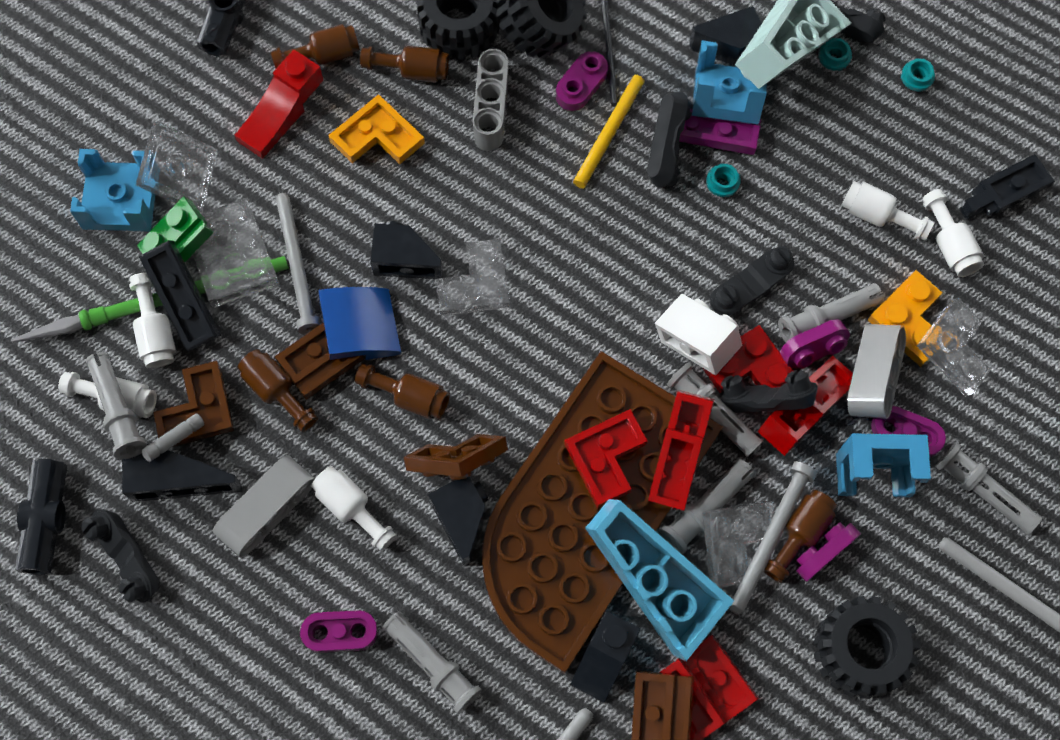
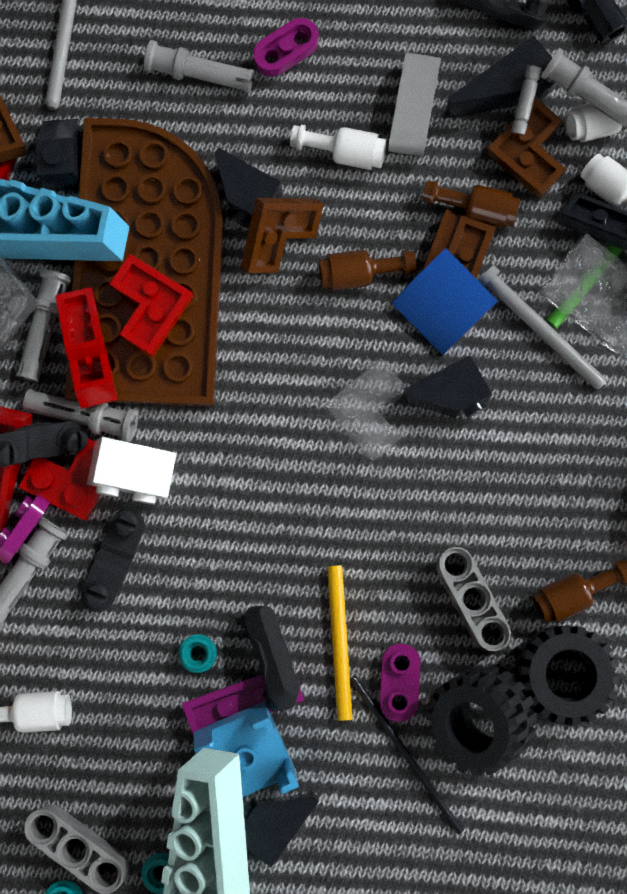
camera: 155 degrees right, 10 degrees up
(376, 124) = (564, 507): light orange plate -> none
(889, 113) = (57, 848): none -> light grey beam

